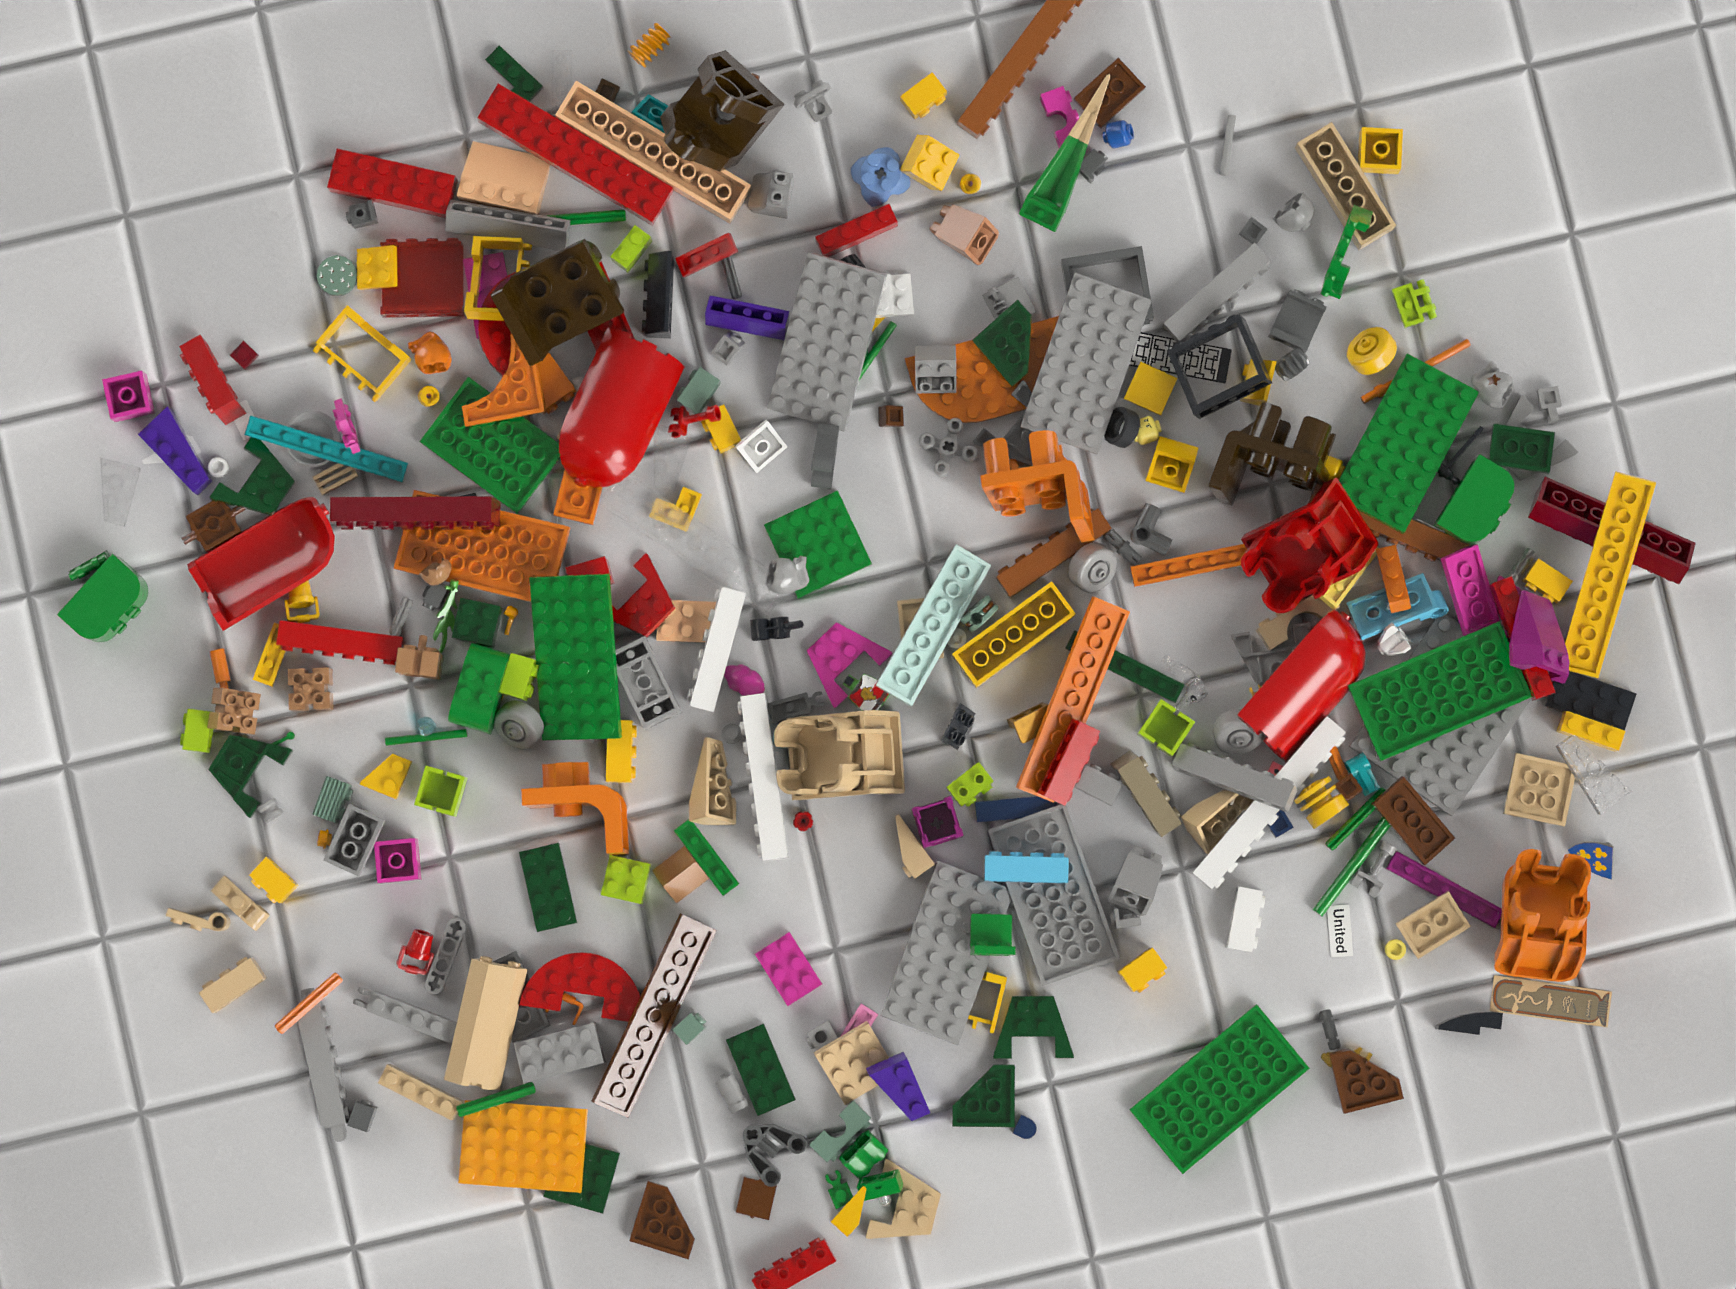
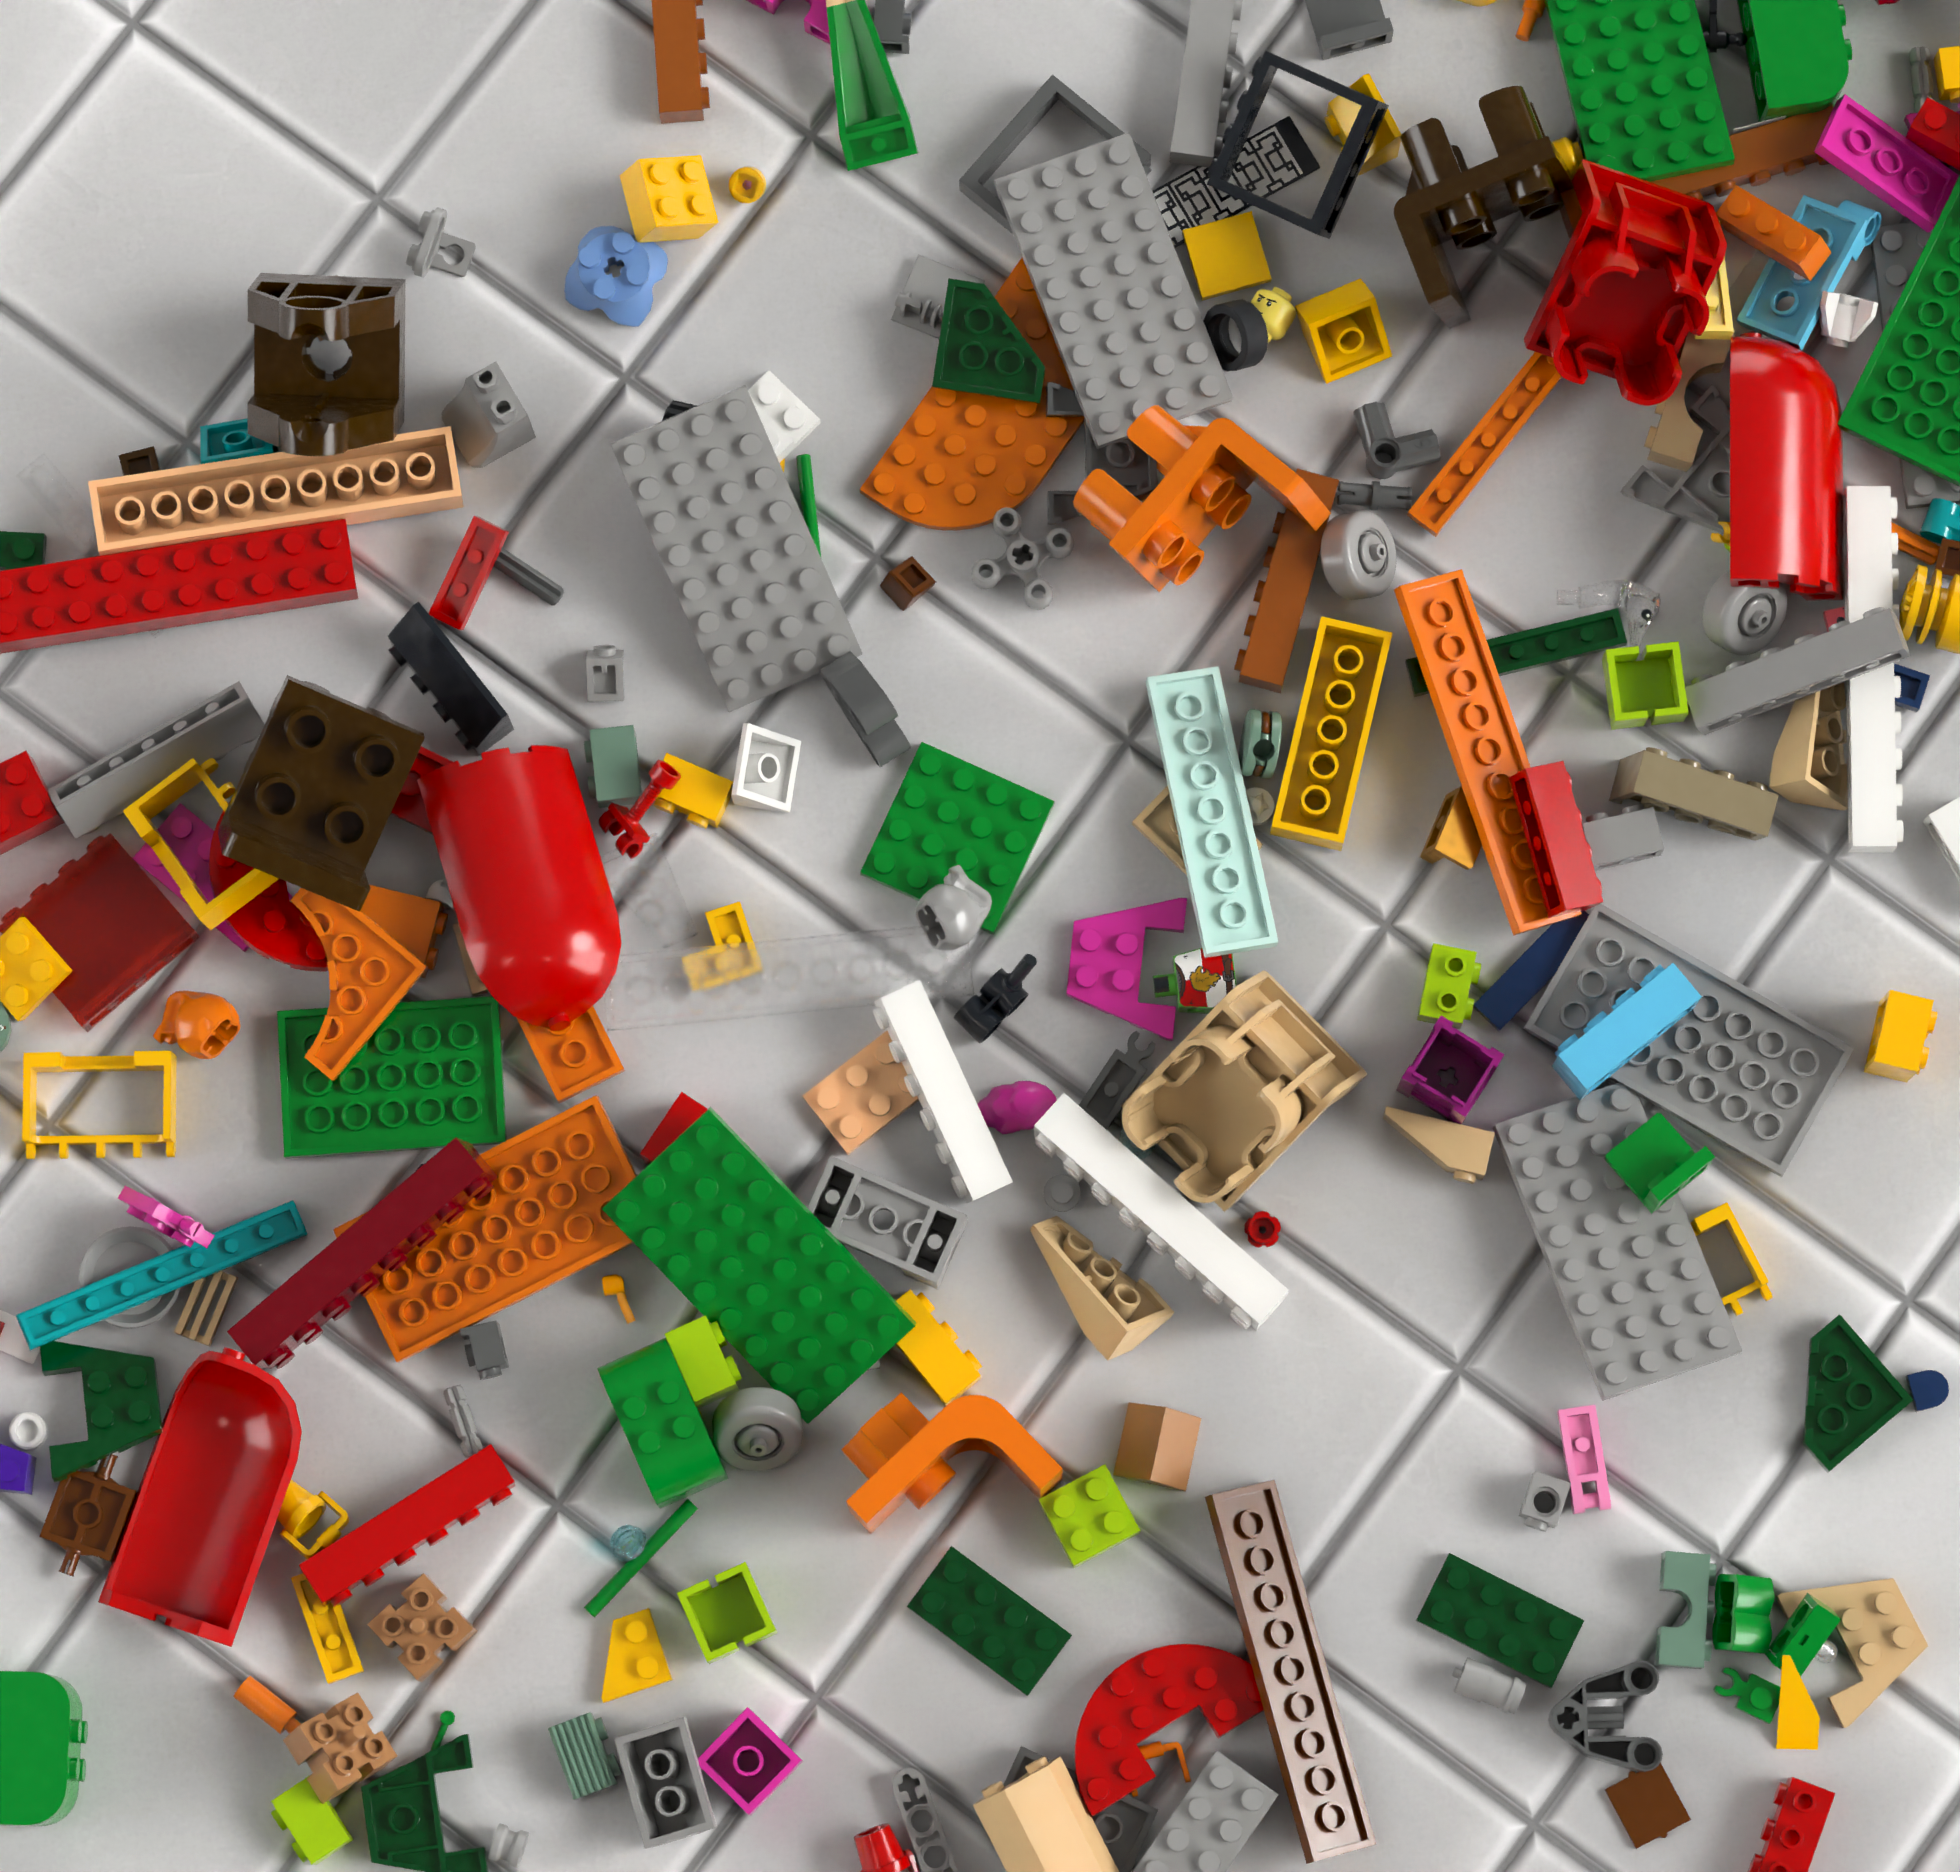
camera: 45 degrees left, 5 degrees down
(324, 838) = (618, 1820): light orange plate -> none
(419, 661) = (544, 1457): medium nougat brick -> none
(428, 396) = (243, 1085): yellow tile -> none
(436, 573) = (466, 1315): medium nougat hair -> none
(448, 617) = (533, 1366): bright green piece -> none
(477, 622) = (577, 1337): dark green brick -> none
(503, 179) = (96, 702): light nougat slope -> none
(593, 217) = (268, 651): green axle -> none
(631, 248) = (357, 650): lime brick -> none
(648, 605) = (795, 1114): red wing -> none
(649, 45) = (146, 356): light orange piece -> none
(690, 1027) = (1356, 1642): sand green brick -> none
(706, 857) = (1173, 1390): green plate -> none
(747, 317) = (597, 611): dark purple brick -> none
(788, 969) = (1417, 1449): dark pink plate -> none
(847, 1061) = (1623, 1497): tan plate -> none
(856, 231) = (648, 370): red brick -> none
(899, 1083) = (1712, 1471): dark purple wedge -> none
(924, 96) = (583, 120): yellow brick -> none
(935, 369) = (916, 465): light grey slope -> none
(960, 722) = (1361, 905): black hinge -> none
(965, 232) = (797, 253): nougat hips -> none
(1033, 1018) = (1807, 1231): dark green wing -> none
(1128, 920) = (1820, 987): light grey bracket -> none
(1137, 882) = (1788, 926): light grey hips -> none
(1292, 364) = (1390, 64): dark grey gear -> none

